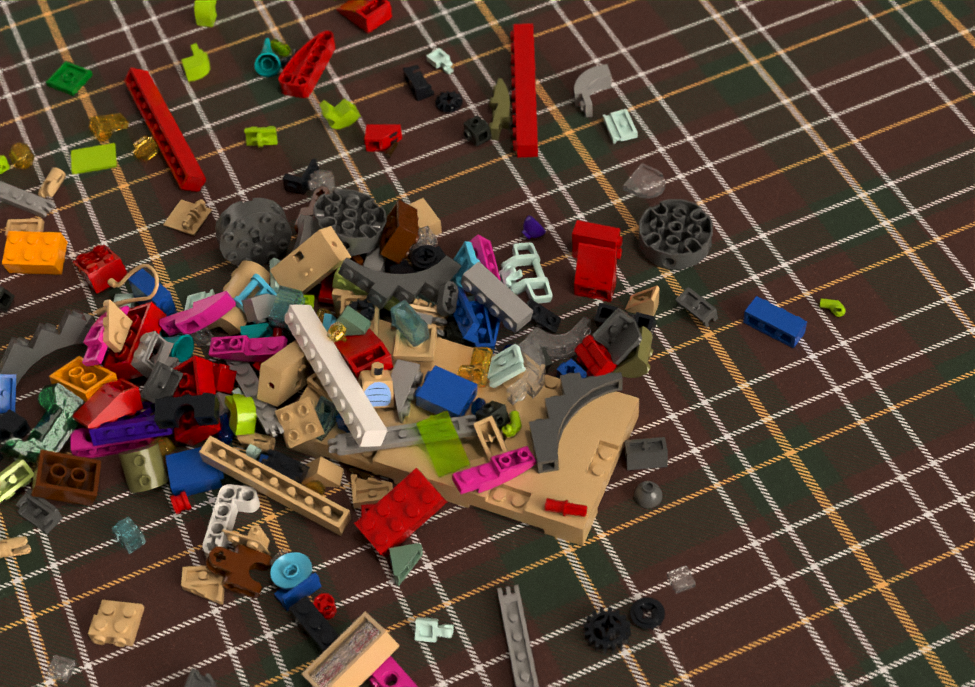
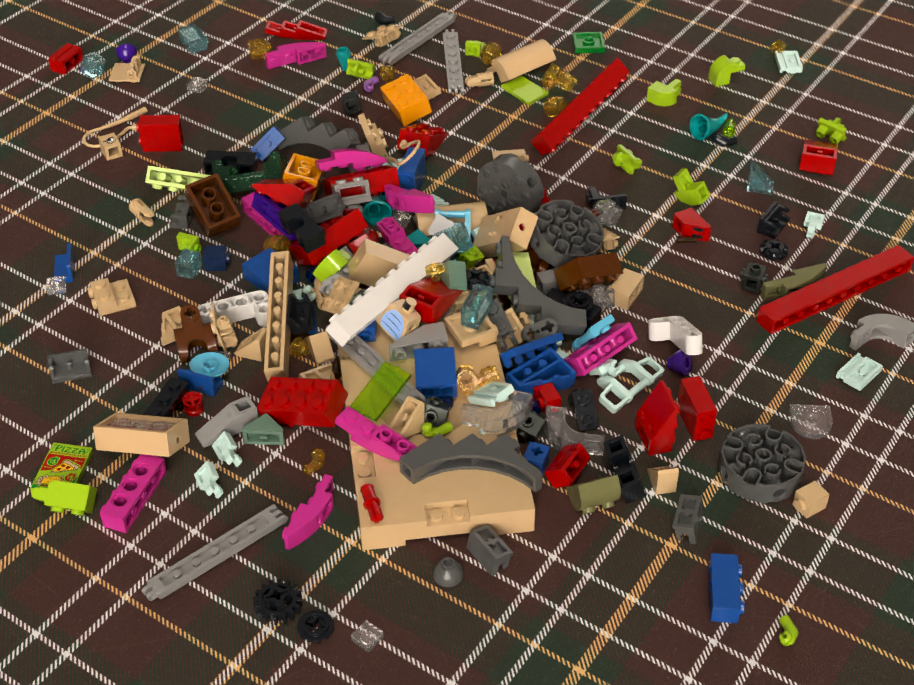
camera: 55 degrees right, 10 degrees down
(34, 649) = (65, 265): none -> blue panel
(58, 138) = (522, 60): none -> tan brick
(67, 300) = (373, 136): none -> tan plate
(95, 523) = (188, 241): none -> lime bracket
(115, 326) = (357, 159): tan wing -> none
(136, 507) = (216, 258): none -> dark blue brick
(143, 468) = (251, 240): olive brick -> none
(180, 502) = (237, 278): red wheel -> none
(284, 526) = (253, 346): none -> tan slope
(307, 66) = (725, 150): red beam -> none
(362, 66) = (758, 180): none -> clear light blue slope
(374, 584) = (229, 419): none -> light grey slope
(400, 600) = (225, 447): none -> light aqua plate
(466, 537) = (317, 462): none -> clear yellow arm
(496, 297) = (566, 360): light grey brick -> none
(508, 337) = (546, 396): none -> red brick
(510, 208) = (677, 330): none -> white beam
(527, 565) = (310, 516): none -> dark pink slope
(619, 335) = (599, 461): dark grey bracket -> none
(725, 225) = (810, 499): none -> tan brick

